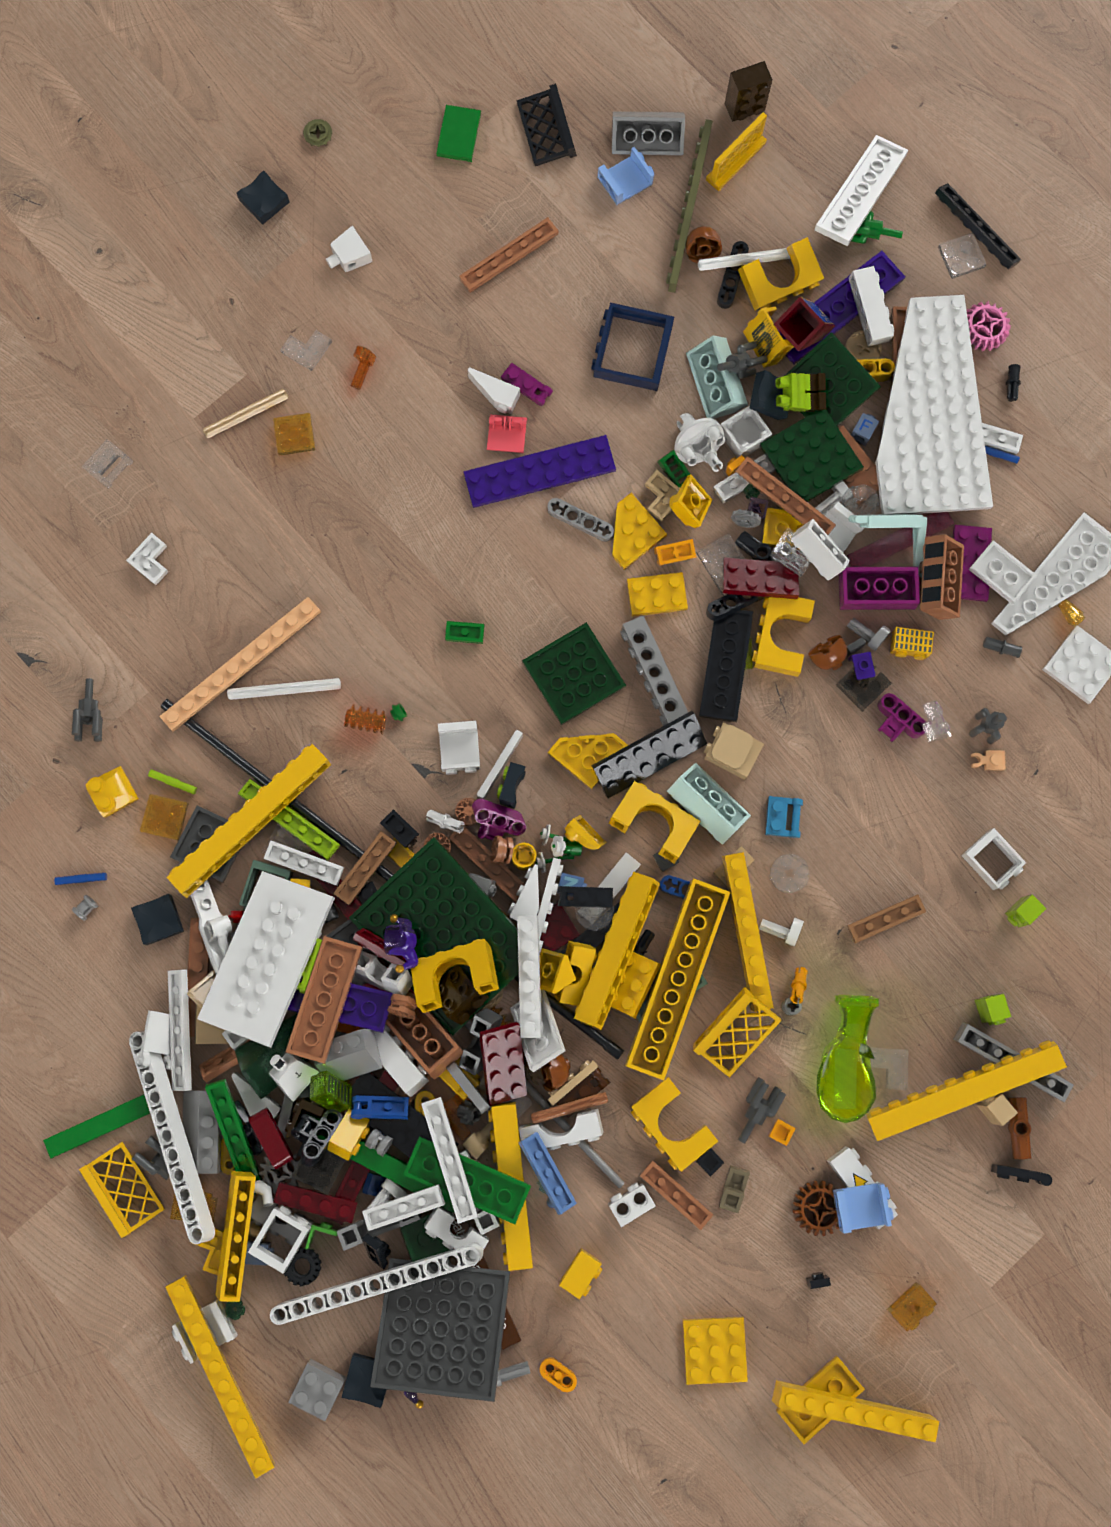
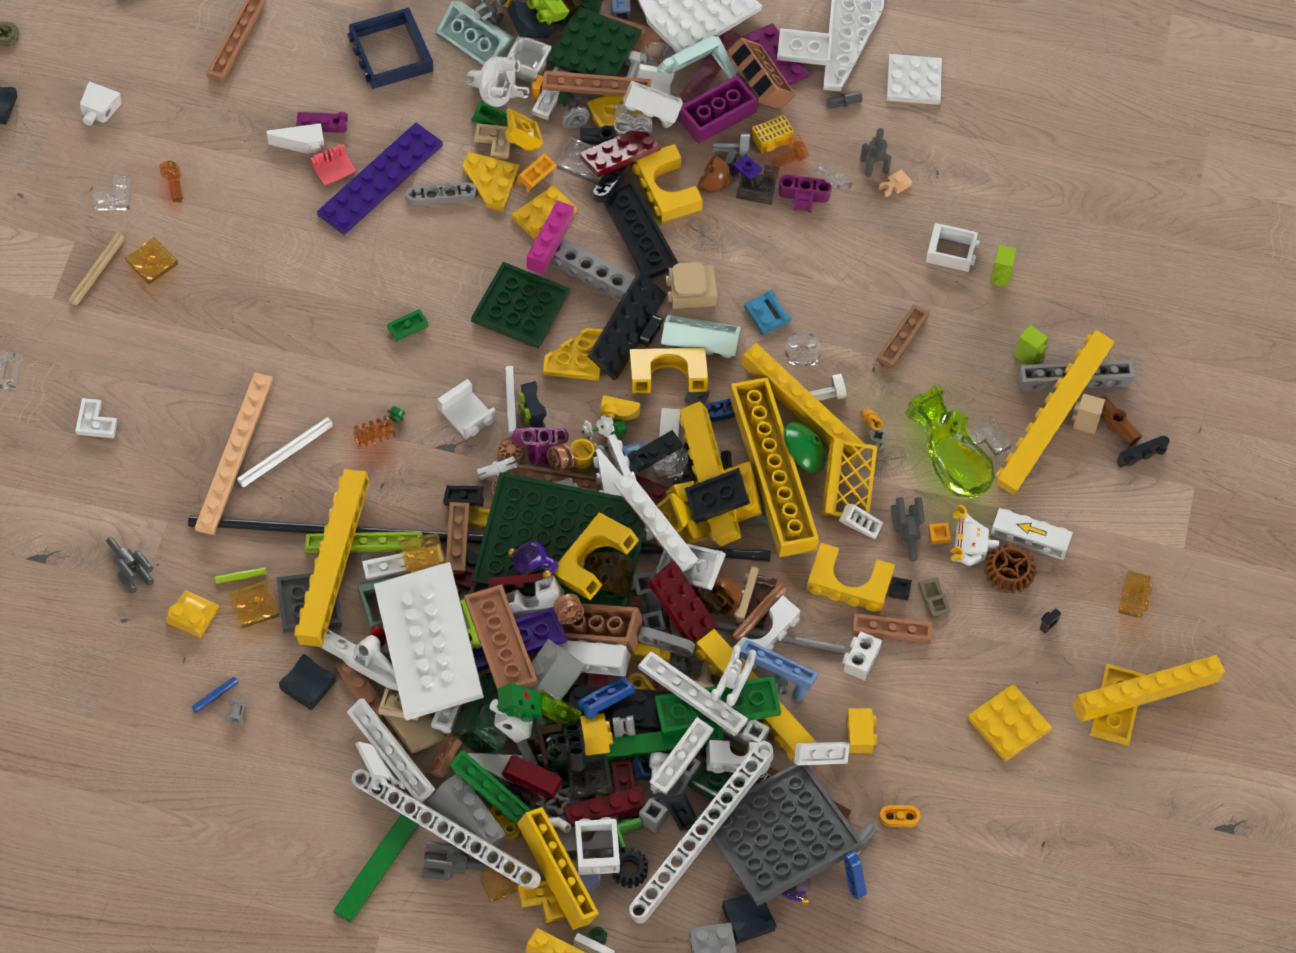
camera: 35 degrees left, 20 degrees down
(105, 1198) = (421, 919): yellow fence -> none
(295, 1074) = (519, 702): none -> green brick
(320, 870) = (421, 552): none -> clear yellow plate
(475, 1413) = (855, 875): none -> blue beam
(493, 1169) = (732, 678): none -> white piece
(528, 1278) = (821, 753): none -> white plate
(601, 984) = (717, 495): none -> black plate
(637, 629) = (550, 237): none -> dark pink brick
(668, 771) = (651, 330): none -> black beam
(714, 1065) = (854, 511): none -> white slope
(718, 977) = (805, 447): none -> green dish
(803, 1160) = (970, 539): none -> white torso
(862, 1207) = (1042, 540): light blue panel -> none
(922, 675) = (798, 152): none -> clear orange piece
(1071, 613) = (878, 47): clear yellow cone -> none

